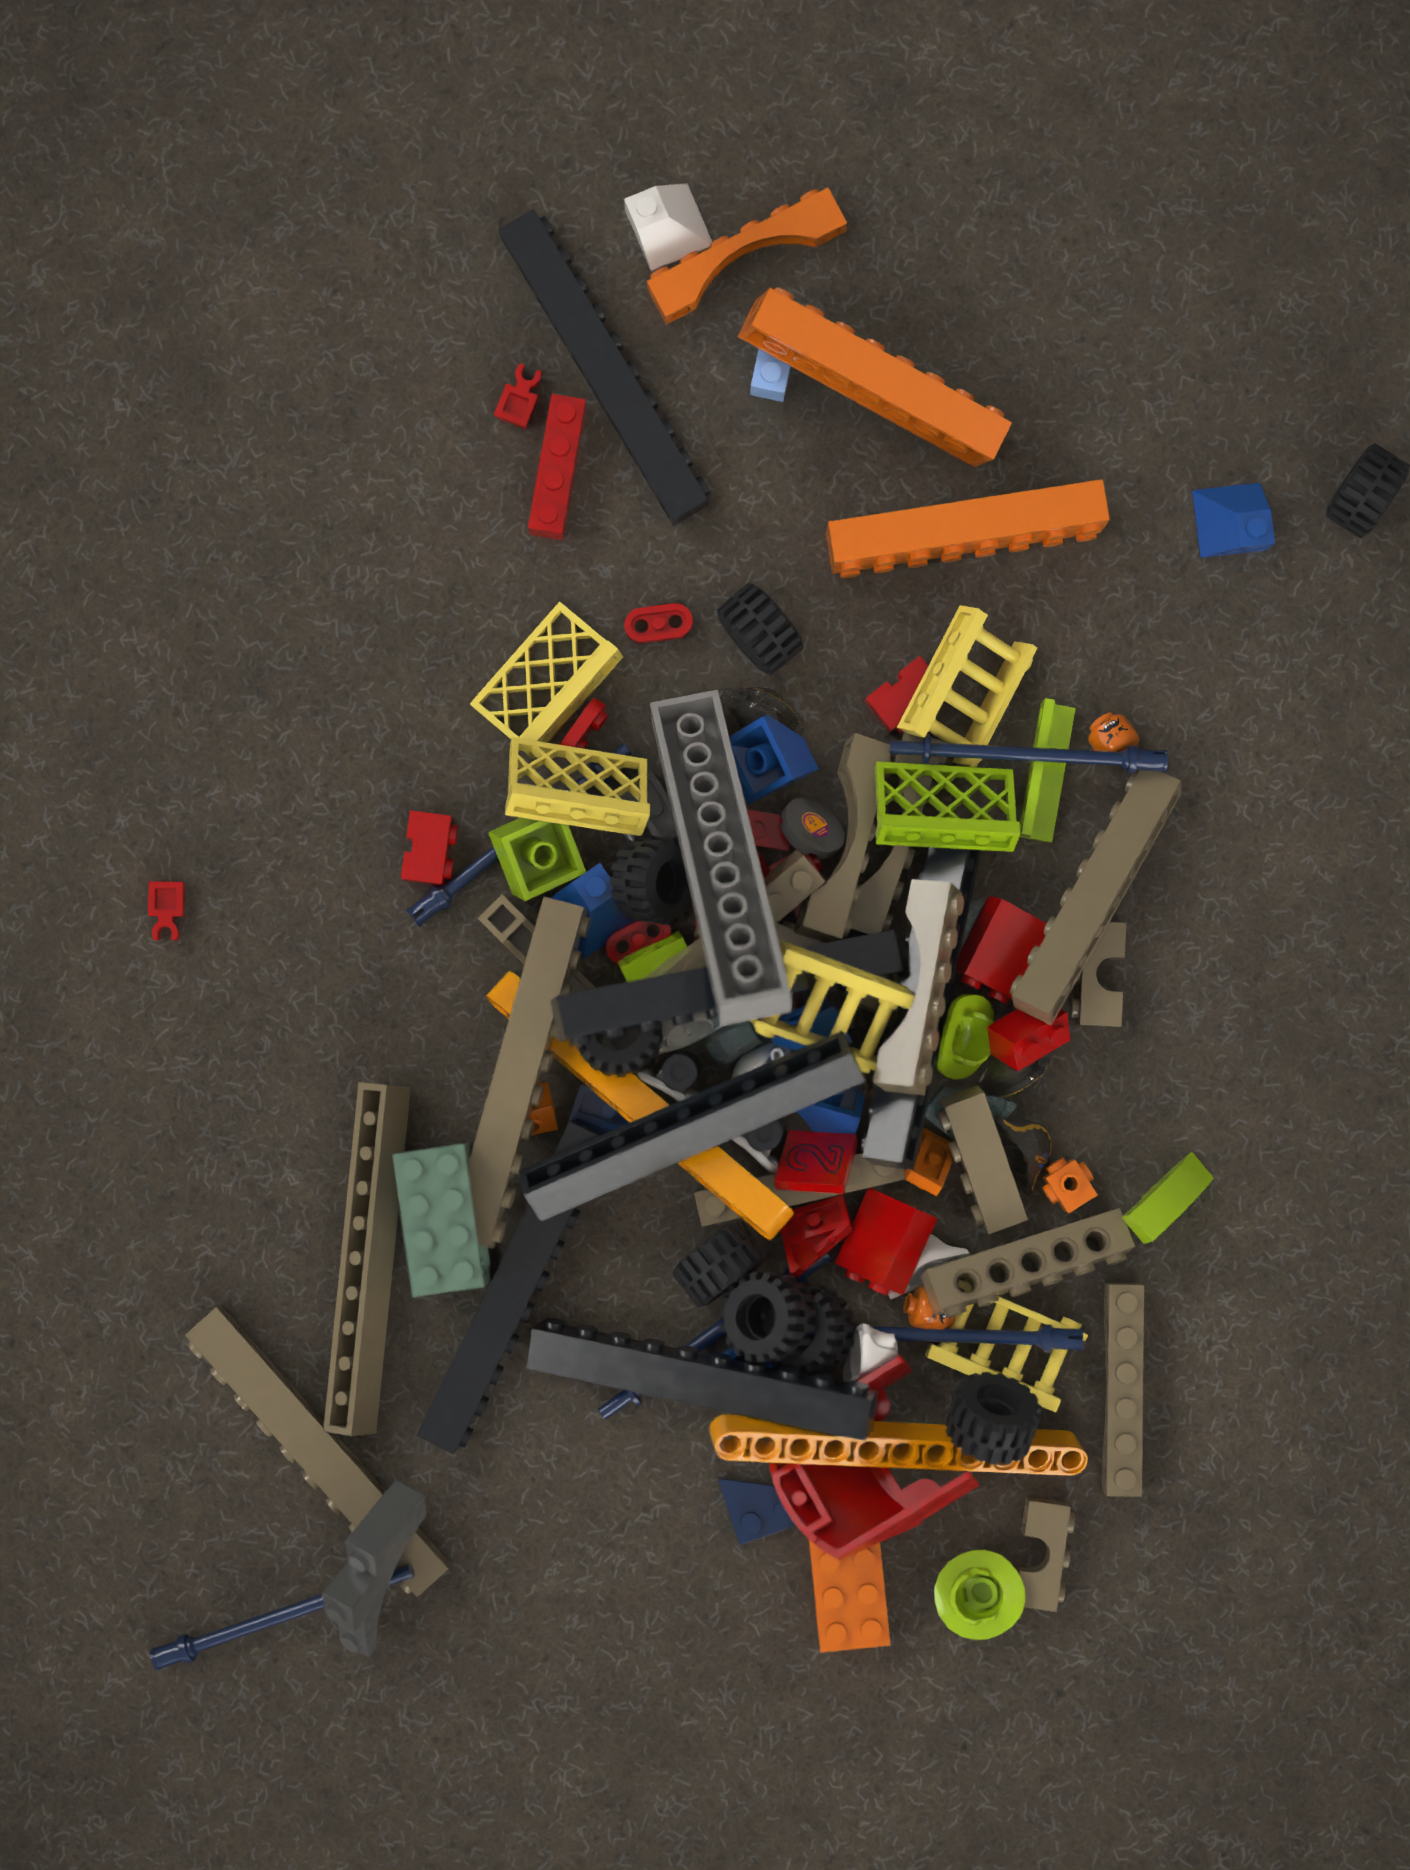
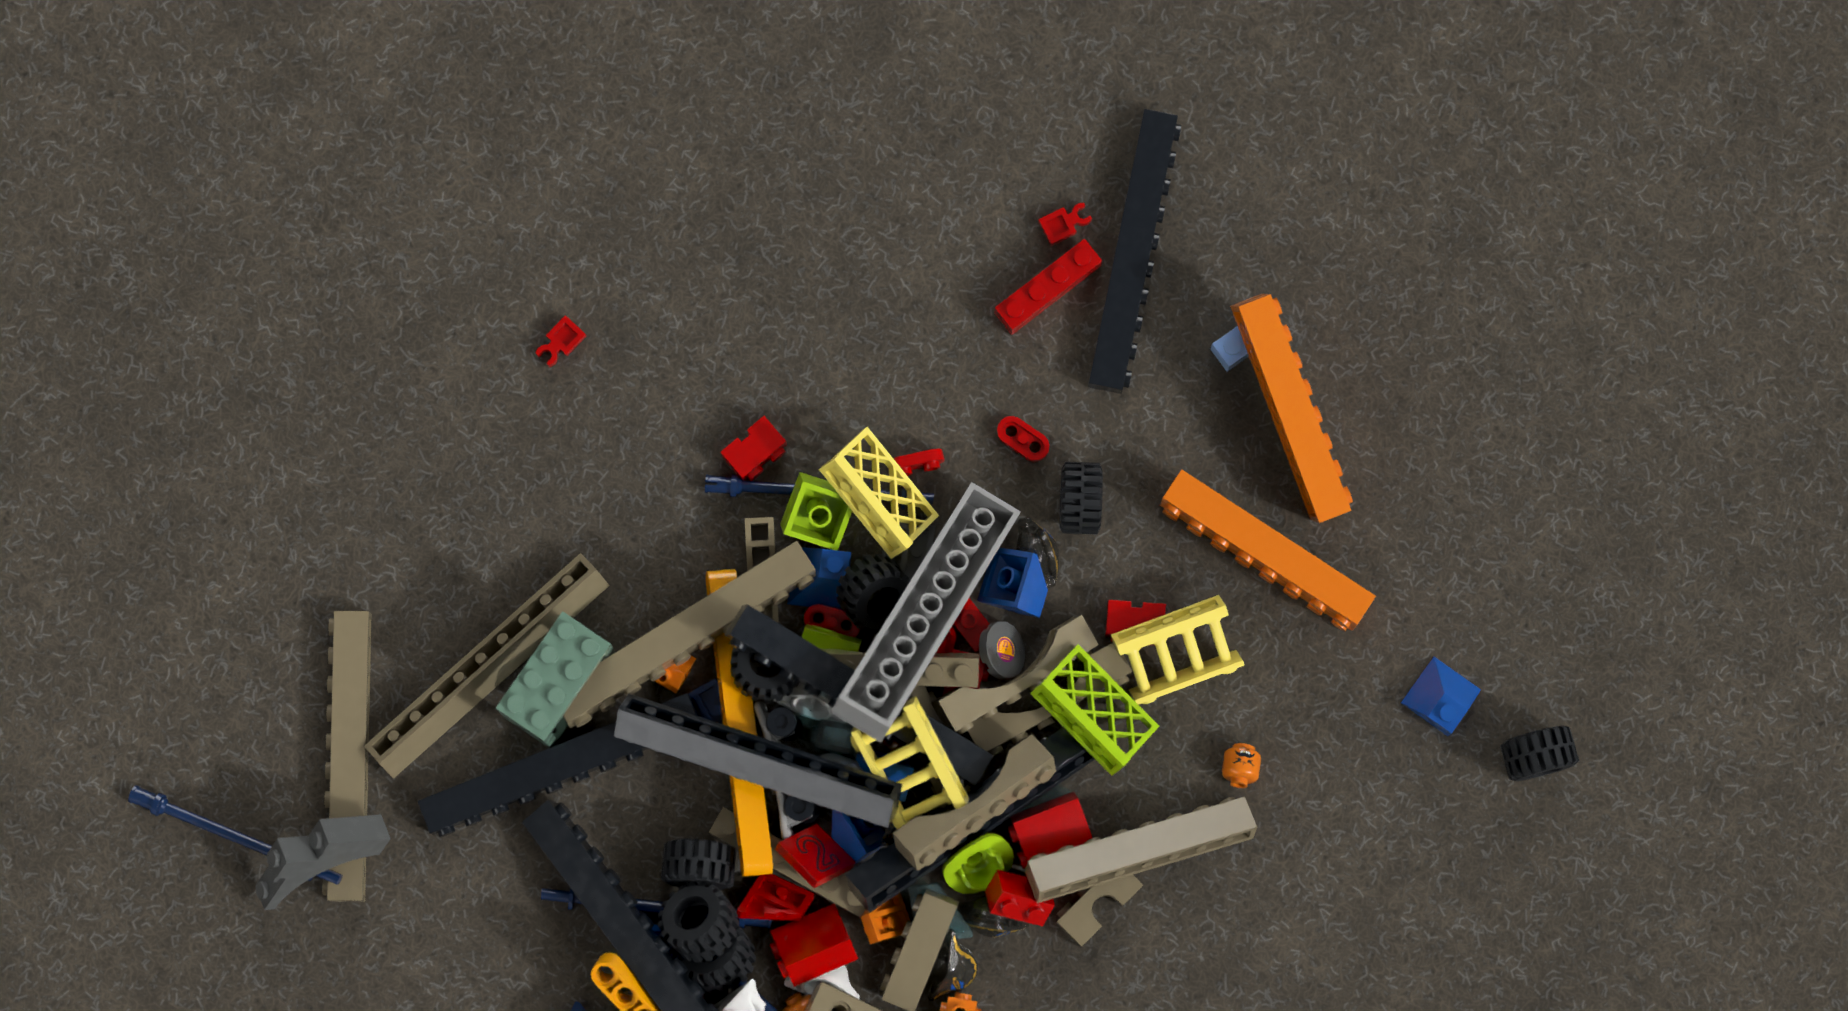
camera: 40 degrees right, 5 degrees down
(571, 695) = (929, 434): light yellow fence -> none
(667, 224) = (1254, 198): white slope -> none
(805, 223) = (1343, 275): orange arch -> none
(1046, 778) = (1181, 748): lime fence -> none
(1130, 759) = (1235, 783): dark blue bar -> none

